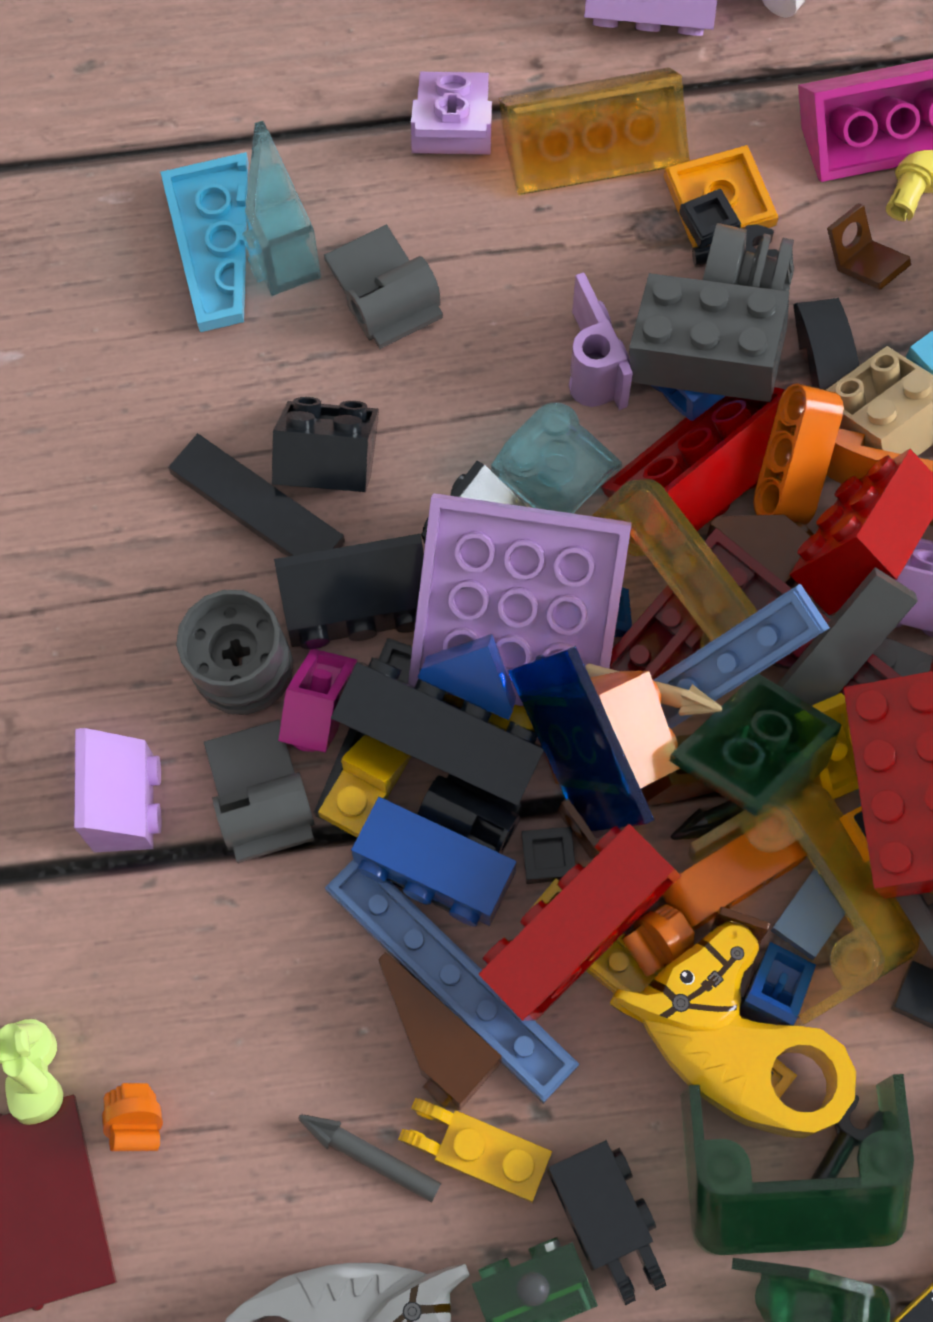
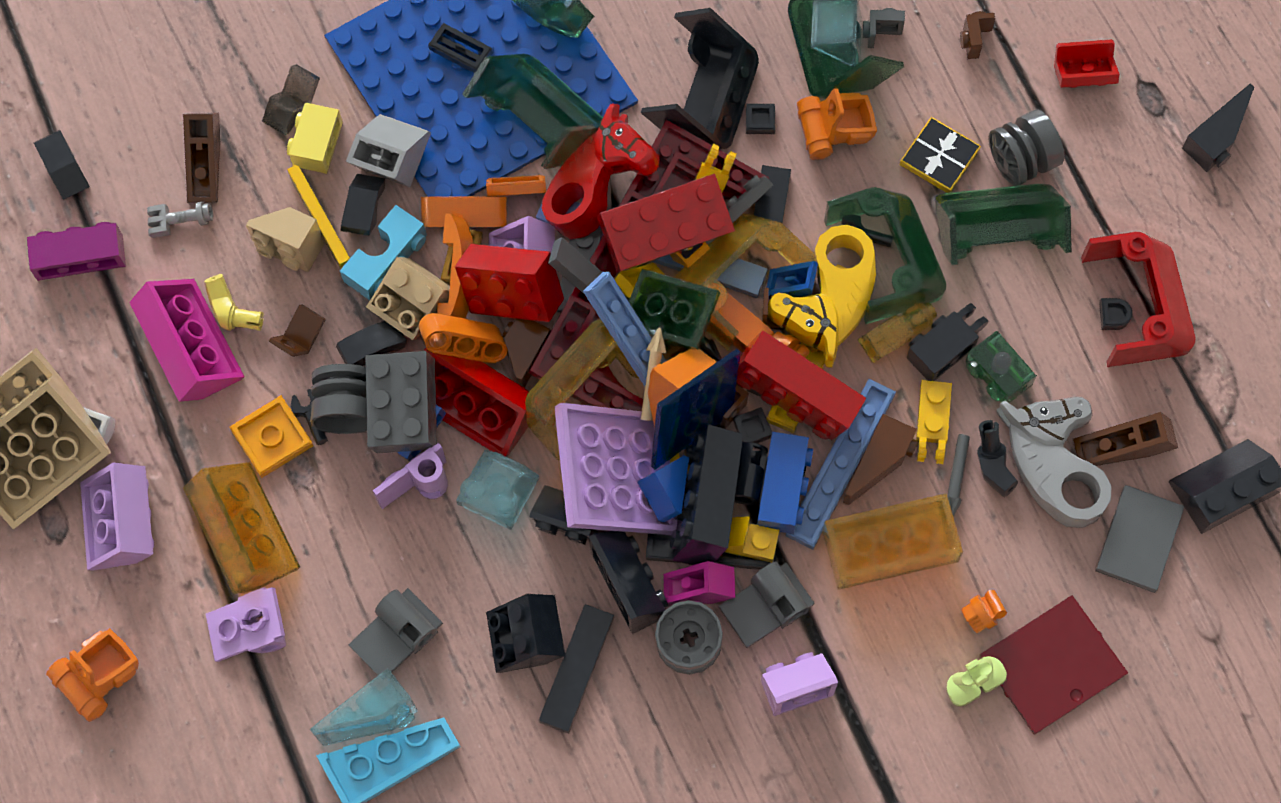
camera: 105 degrees left, 0 degrees up
(286, 1005) = (892, 541): none -> clear yellow brick
(375, 1224) = (993, 459): none -> black arm
(648, 1138) = (897, 331): none -> clear yellow piece
(704, 213) = (295, 435): black tile -> none

